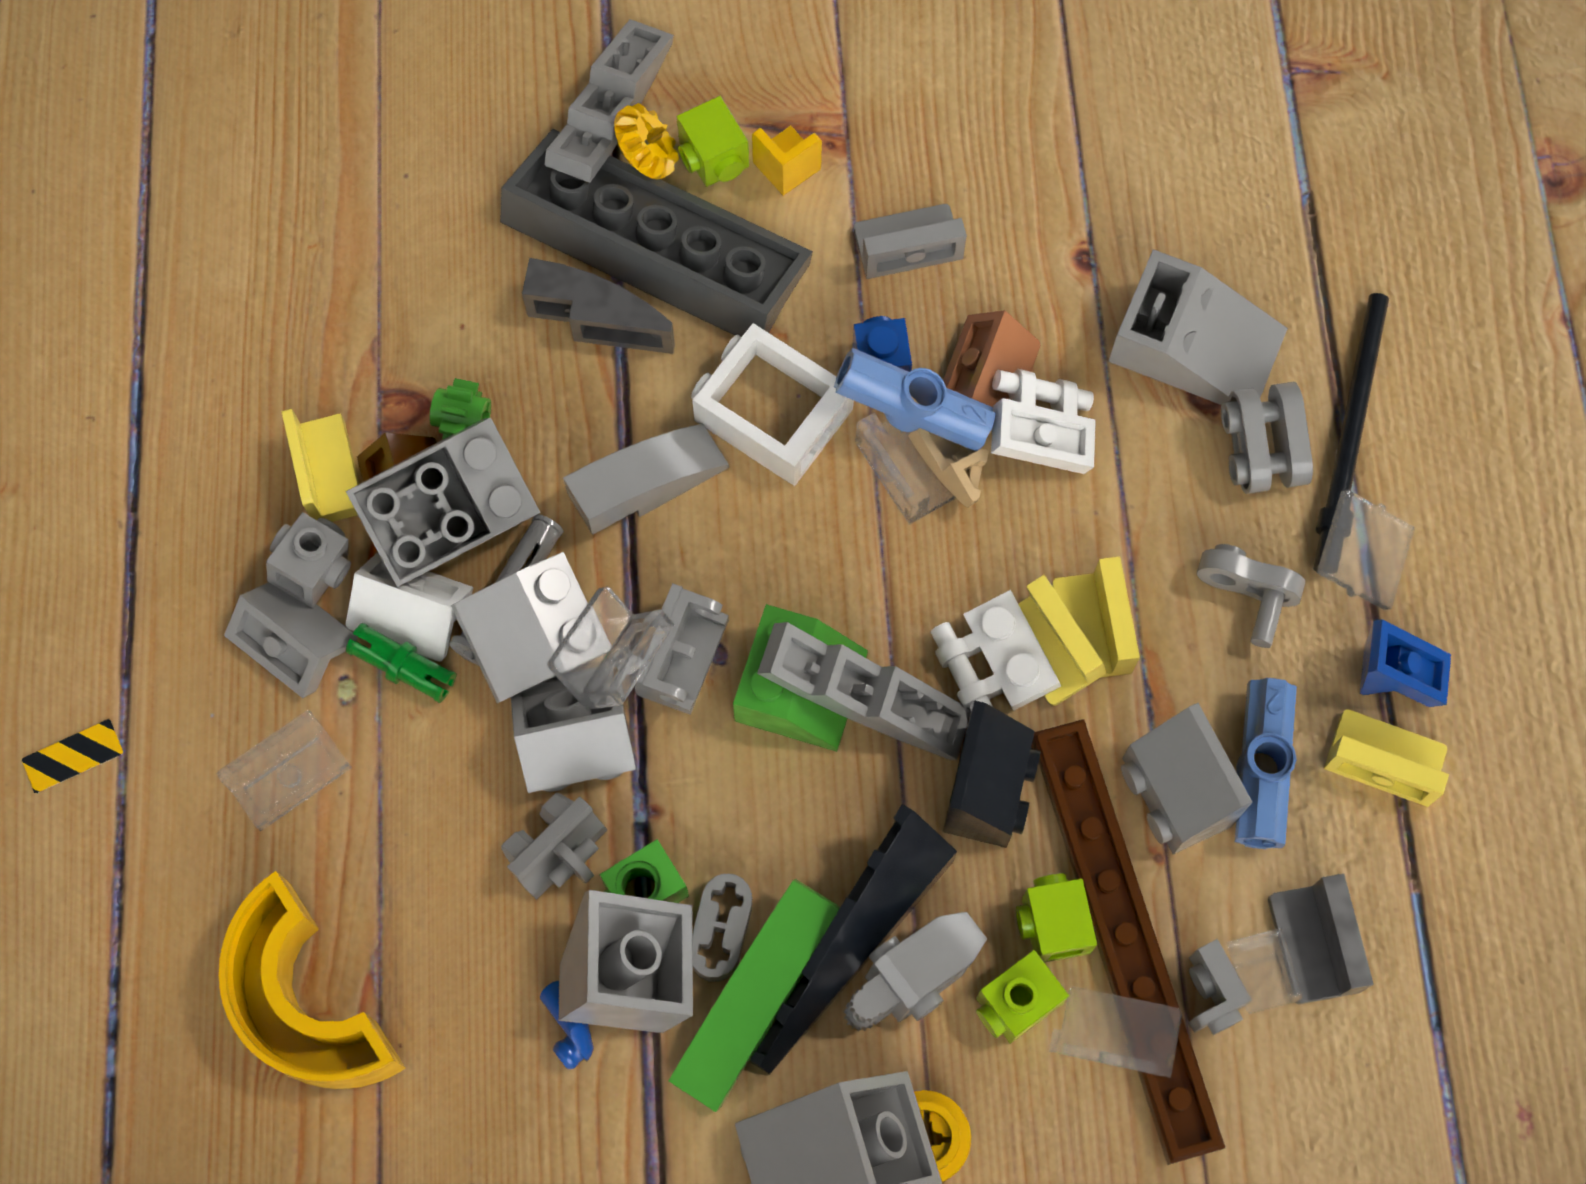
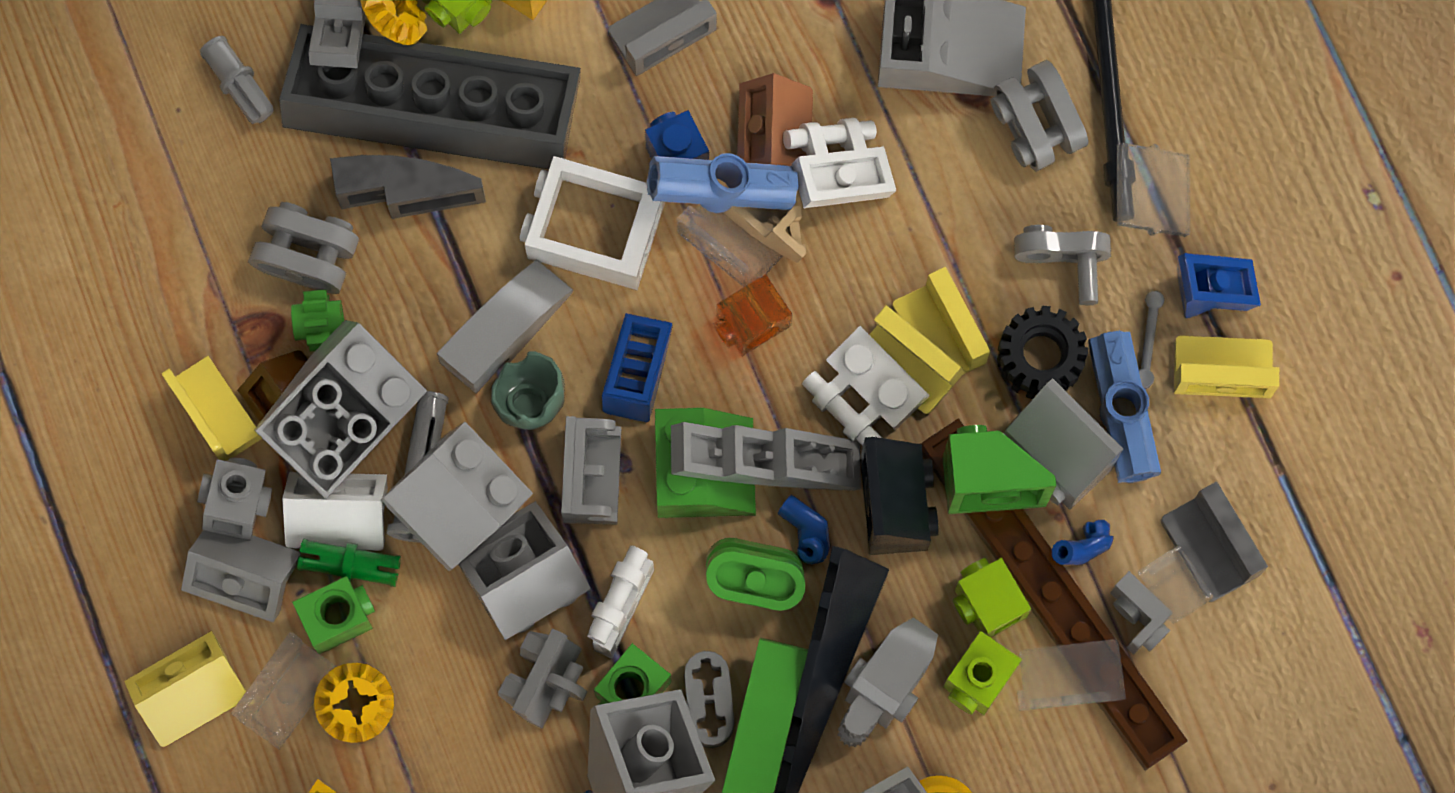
camera: 20 degrees left, 5 degrees up
(72, 756) = (86, 740): sticker -> none
(185, 737) = (185, 689): none -> light yellow panel
(346, 696) = (312, 612): none -> bright green brick
(368, 827) = (340, 722): none -> yellow gear
(471, 161) = (236, 79): none -> light grey axle
(472, 313) = (292, 225): none -> light grey brick
(608, 650) = (535, 495): clear panel -> none
(645, 549) = (529, 392): none -> sand green hair
(661, 792) = (621, 601): none -> white plate
(751, 590) = (628, 396): none -> blue slope
(812, 810) = (755, 574): none -> bright green brick
(890, 783) = (812, 530): none -> blue arm
(902, 545) = (752, 316): none -> clear orange brick
(1101, 785) = (992, 473): none -> bright green slope
(1174, 902) = (1079, 552): none -> blue arm
(1201, 649) = (1046, 324): none -> black tyre
(1332, 665) = (1154, 301): none -> light grey hinge

